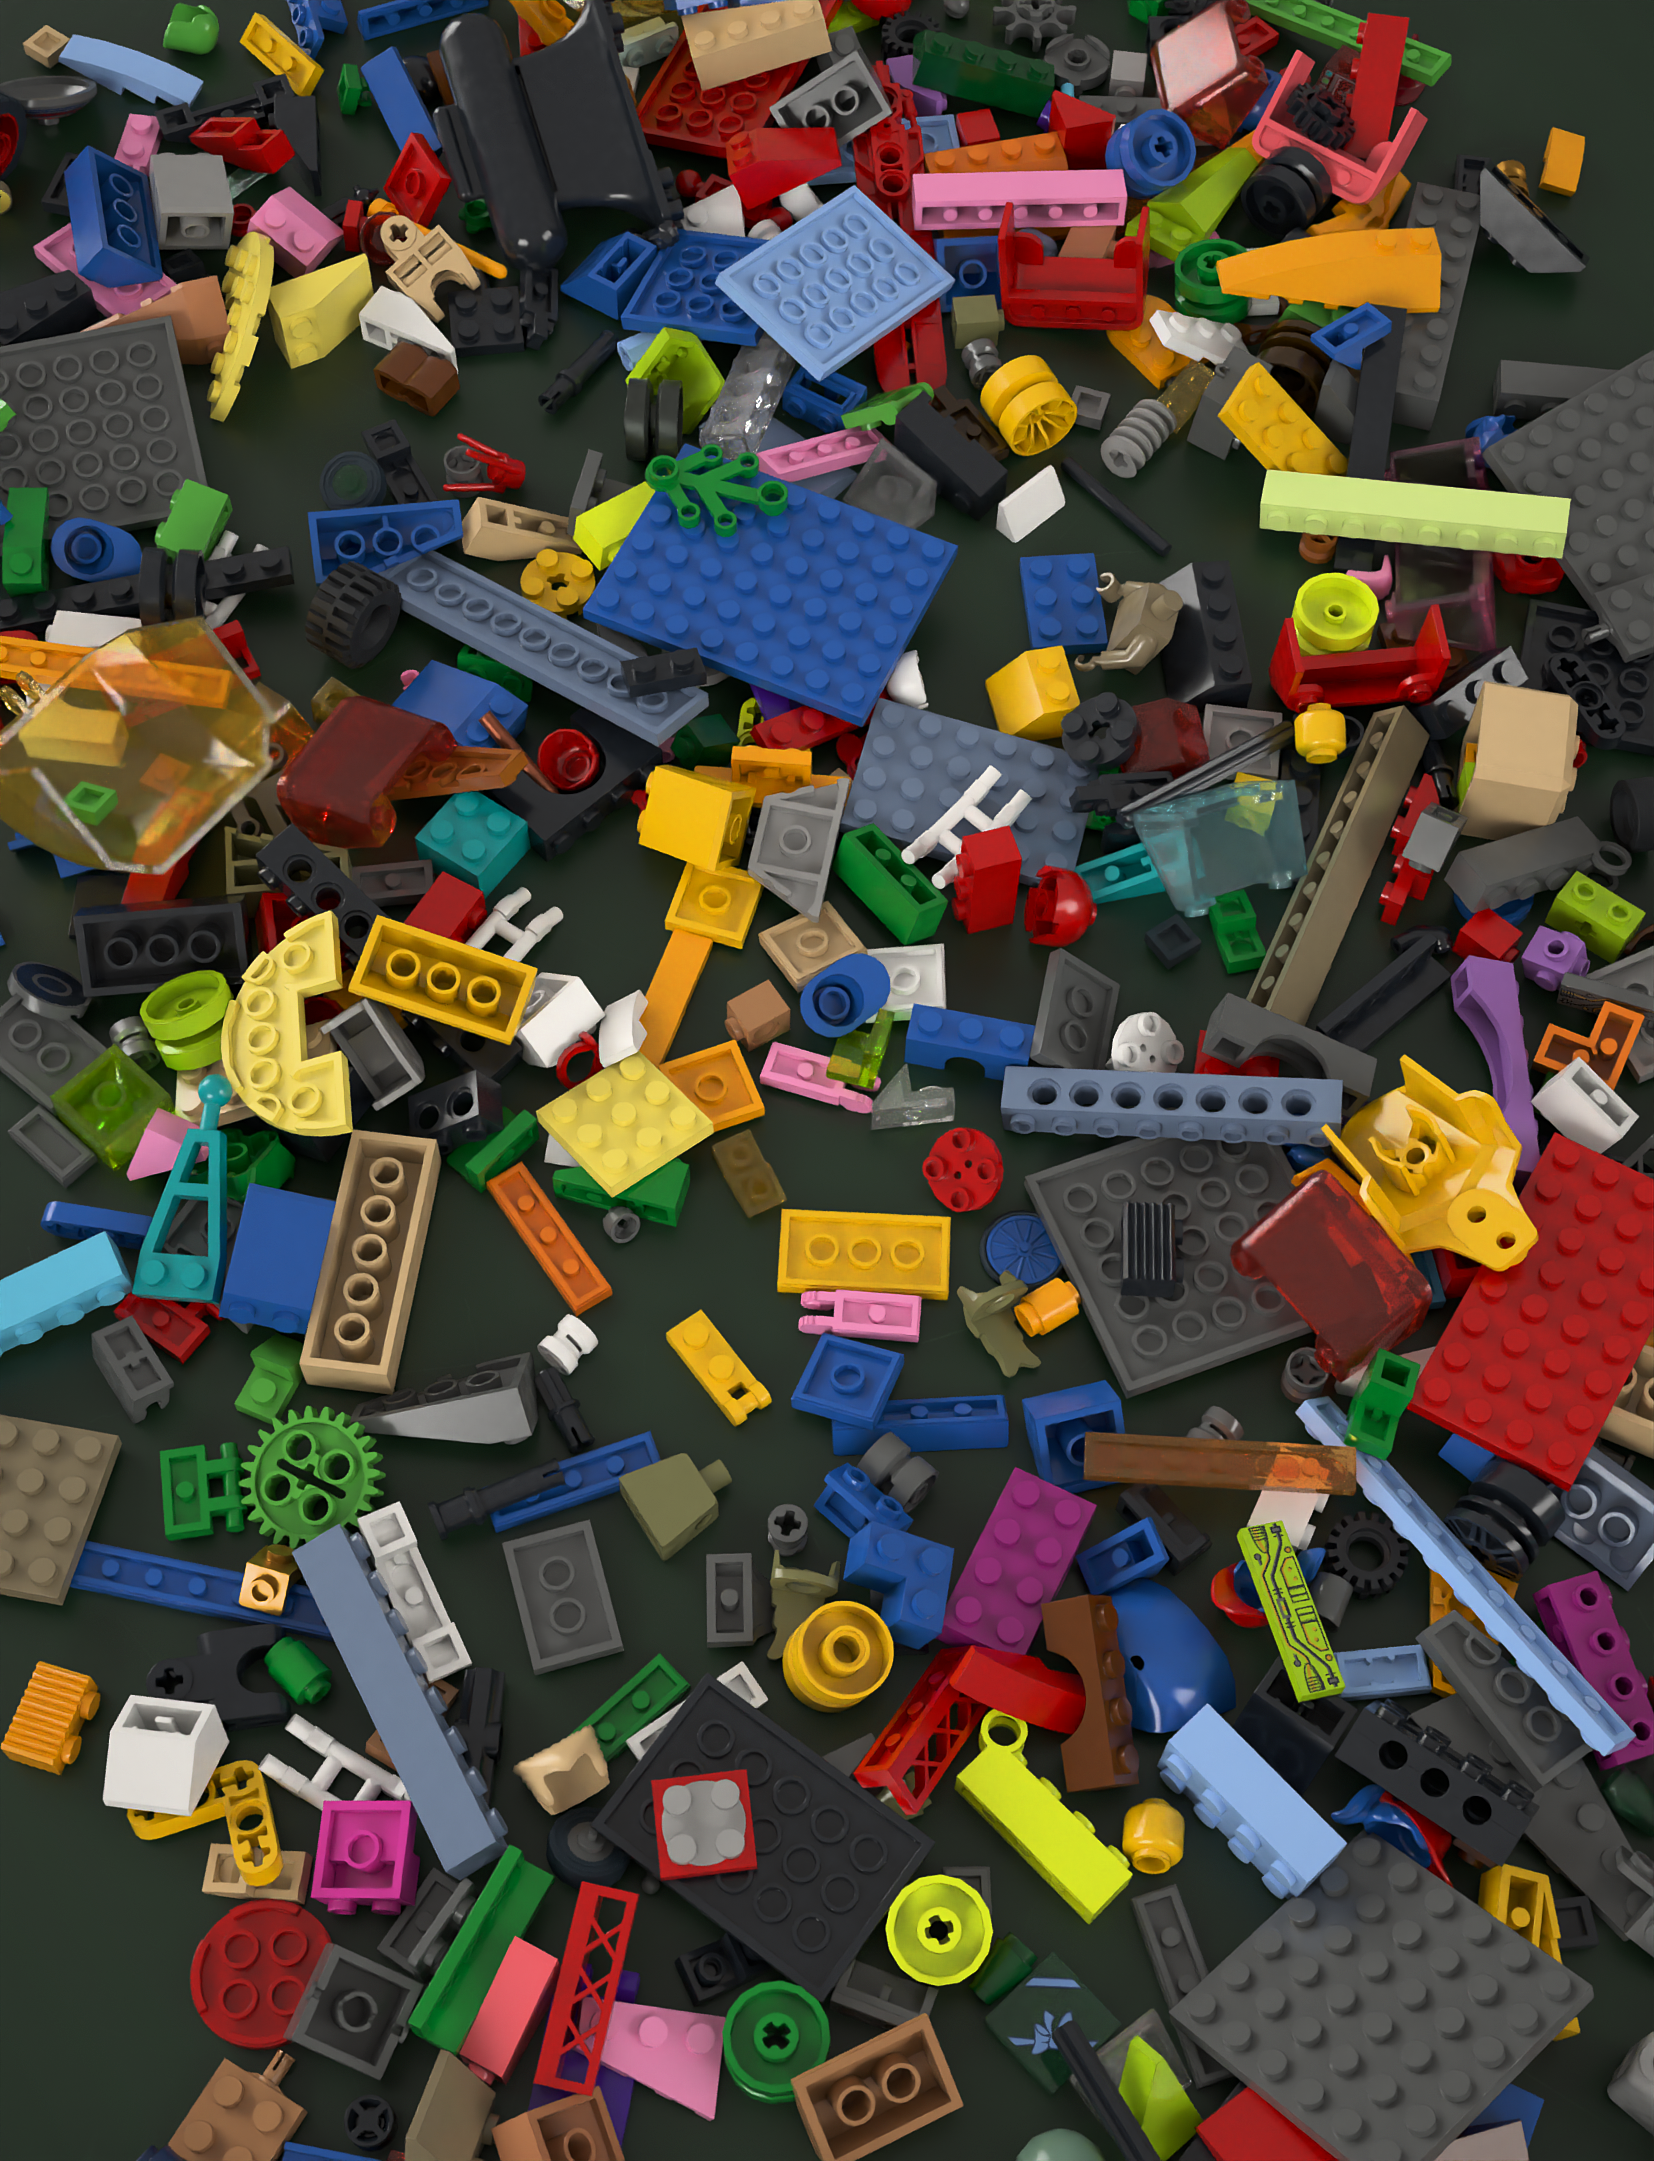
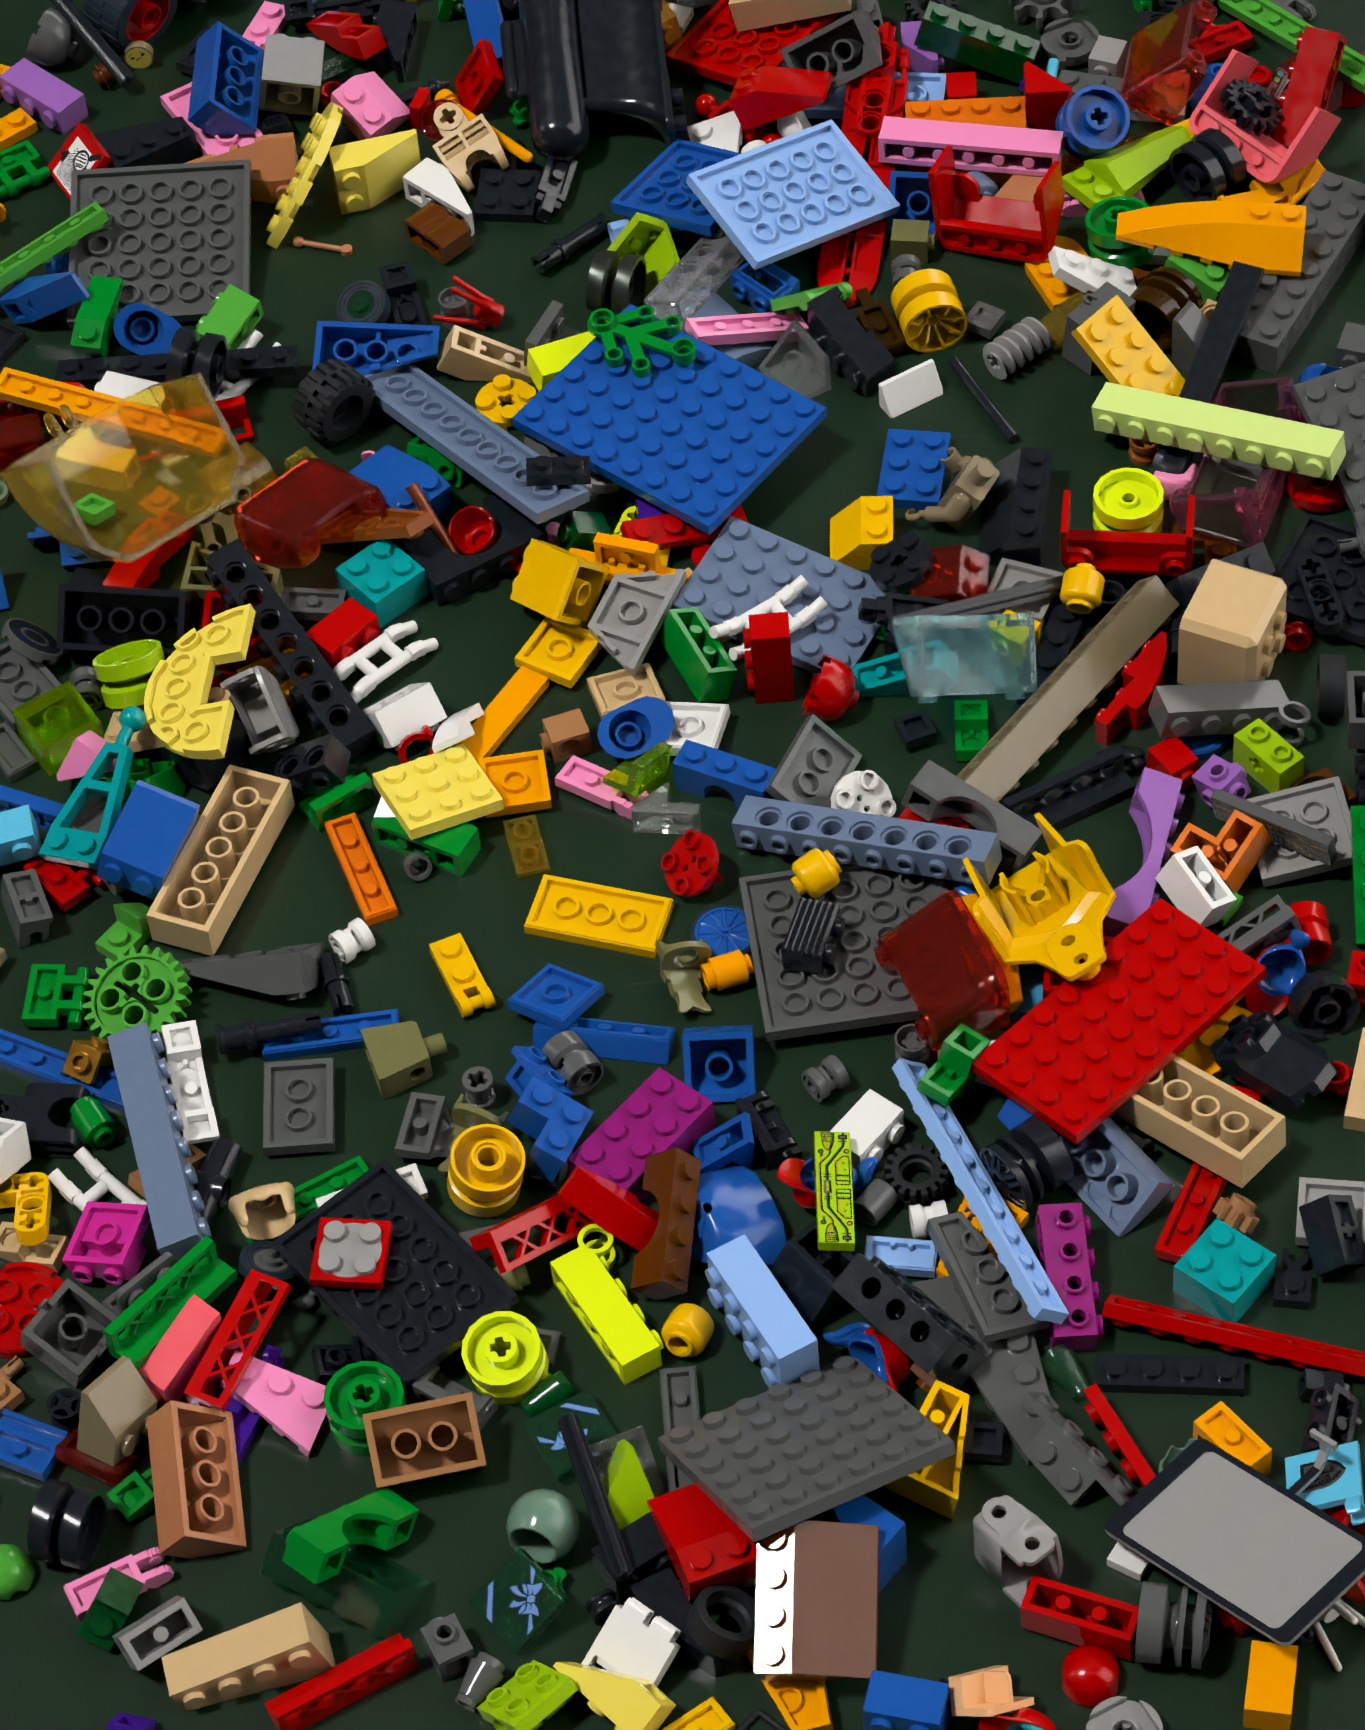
camera: 20 degrees right, 10 degrees down
(309, 413) = (346, 249): none -> nougat hinge
(444, 980) = (323, 663): yellow slope -> none
(611, 274) = (617, 168): blue slope -> none
(662, 236) = (645, 146): black piece -> none
(863, 1315) = (583, 955): bright pink hinge -> none
(906, 682) = (761, 508): white hair -> none
(1125, 1161) = (815, 873): none -> yellow head
(1220, 1463) = (815, 1087): clear orange plate -> none
(1351, 333) = (1201, 284): blue slope -> none
(1401, 1615) = (919, 1217): none -> white wheel
(1433, 838) = (1142, 672): slope -> none

